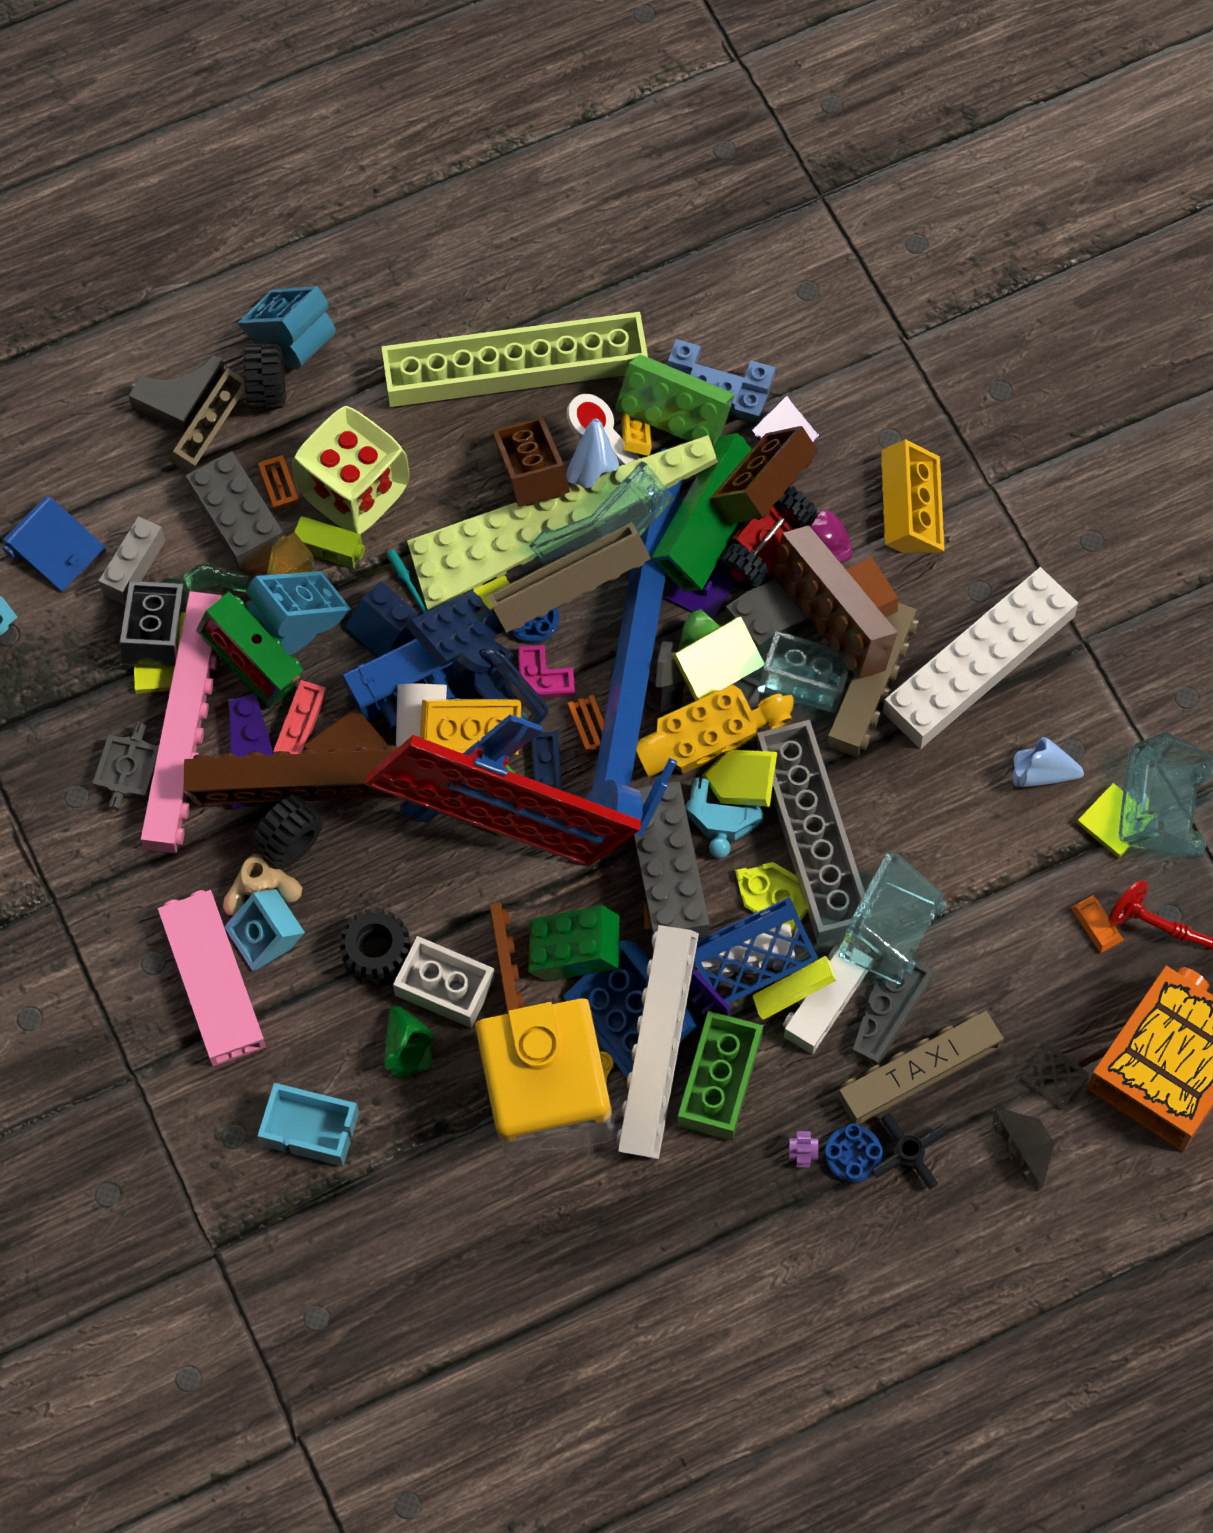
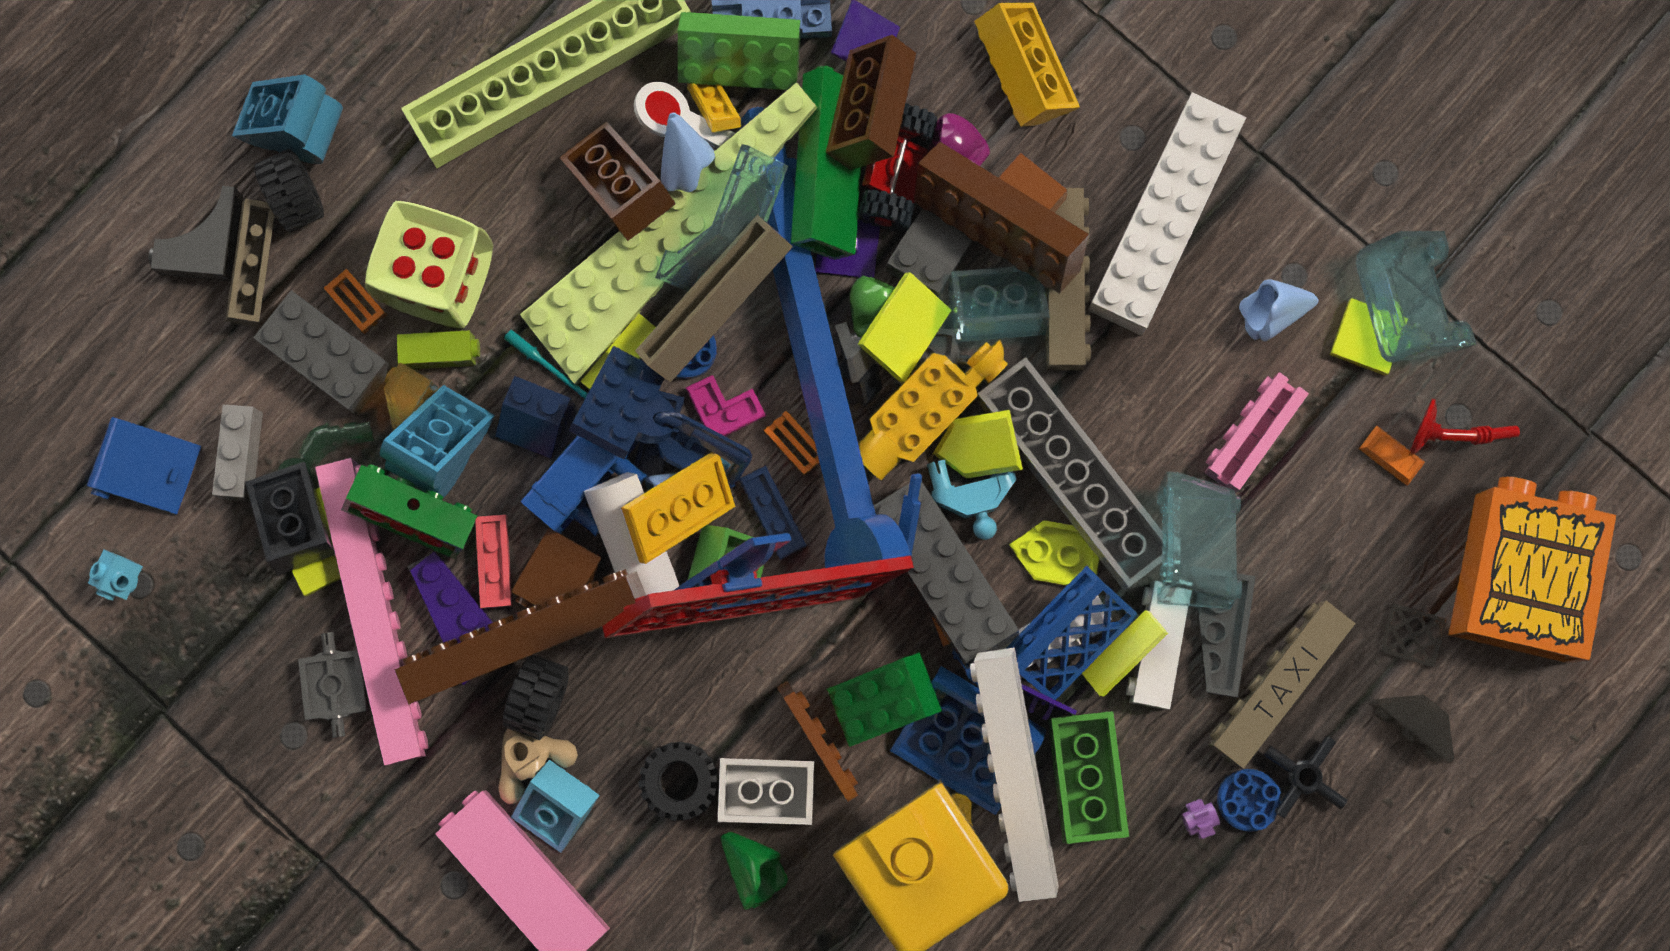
camera: 25 degrees left, 15 degrees up
(984, 858) = (1255, 433): none -> bright pink brick

